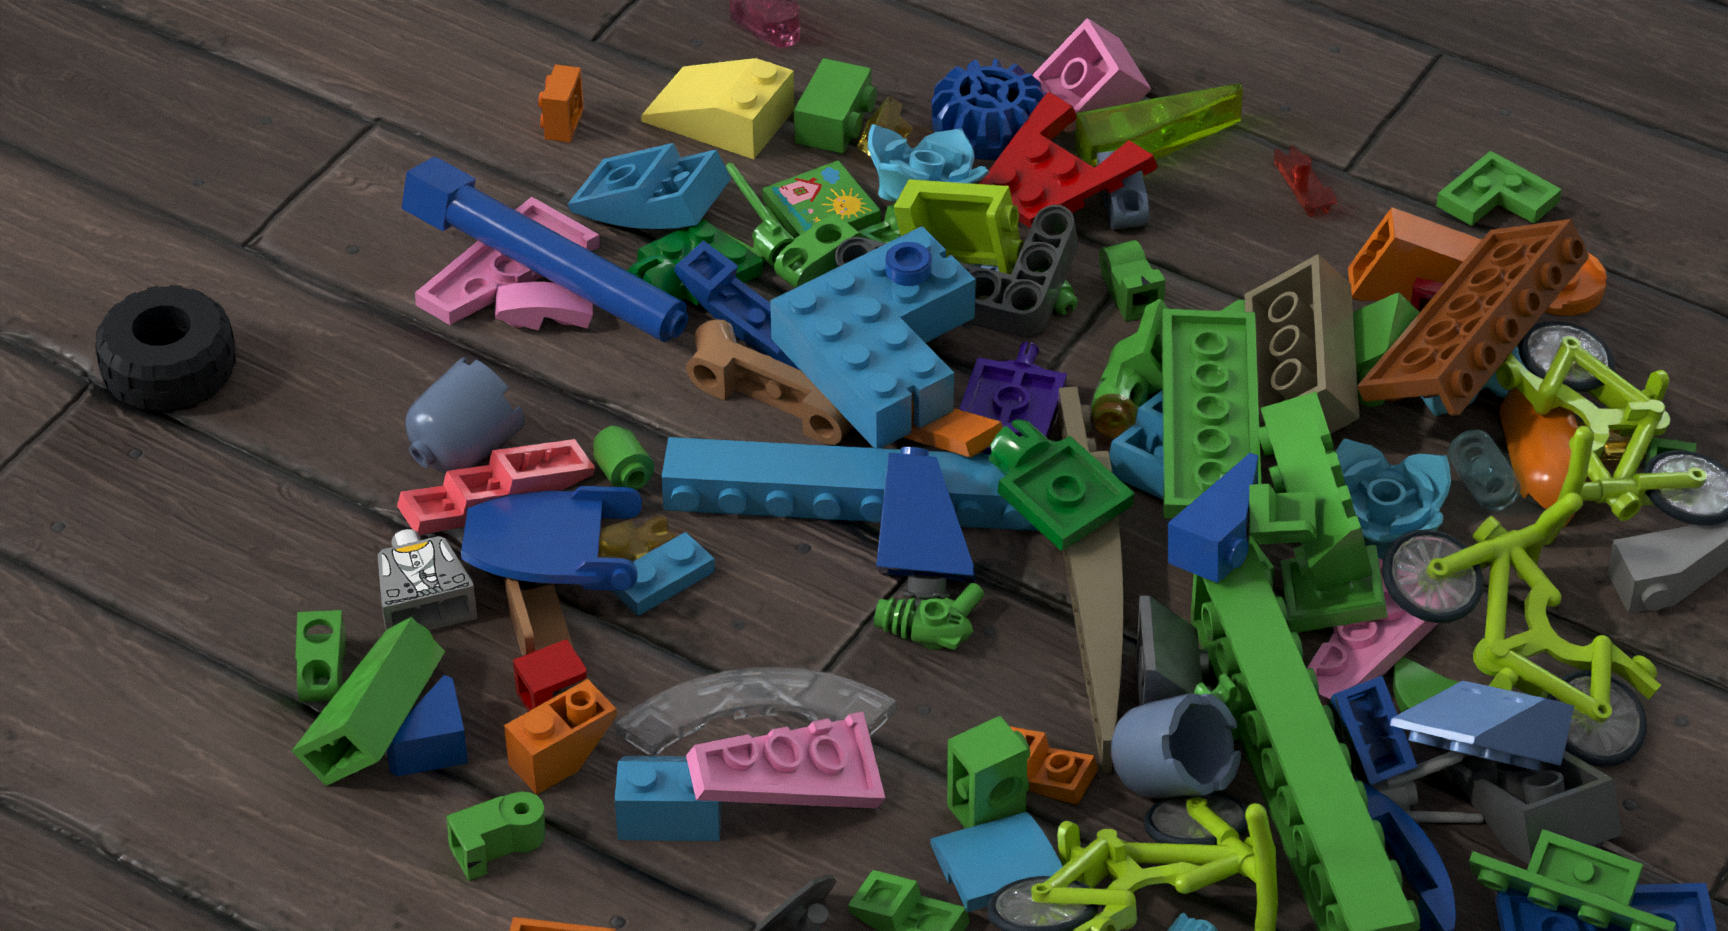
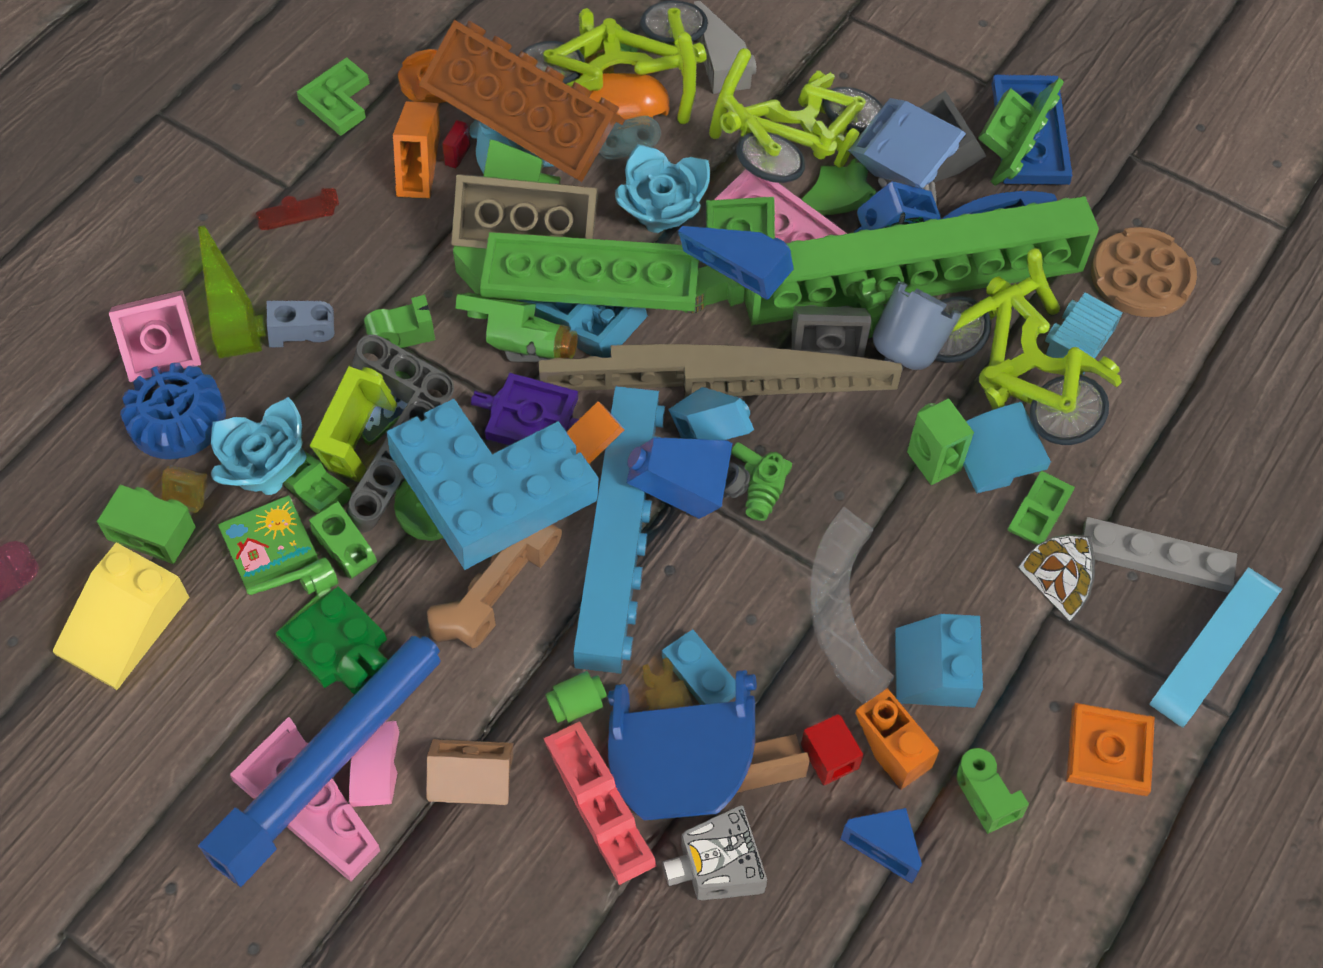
camera: 90 degrees left, 15 degrees up
(319, 655) = (804, 940): bright green leg -> none
(370, 704) = (872, 885): bright green slope -> none
(461, 418) = (536, 825): sand blue cylinder -> none
(541, 377) = (469, 772): none -> panel
(561, 103) = (98, 749): orange piece -> none
(652, 188) = (235, 674): dark azure slope -> none
(715, 286) = (408, 596): blue slope -> none
(800, 766) = (938, 567): bright pink wing -> none
(908, 263) = (444, 437): blue tile -> none
(1012, 551) = (711, 416): none -> dark azure slope
(1048, 175) = (283, 368): red wing -> none
(1056, 484) = (662, 373): green plate -> none
(1056, 771) = (896, 423): orange slope -> none
(1282, 515) = (741, 217): bright green panel -> none
(1305, 463) = (660, 210): bright green wedge -> none

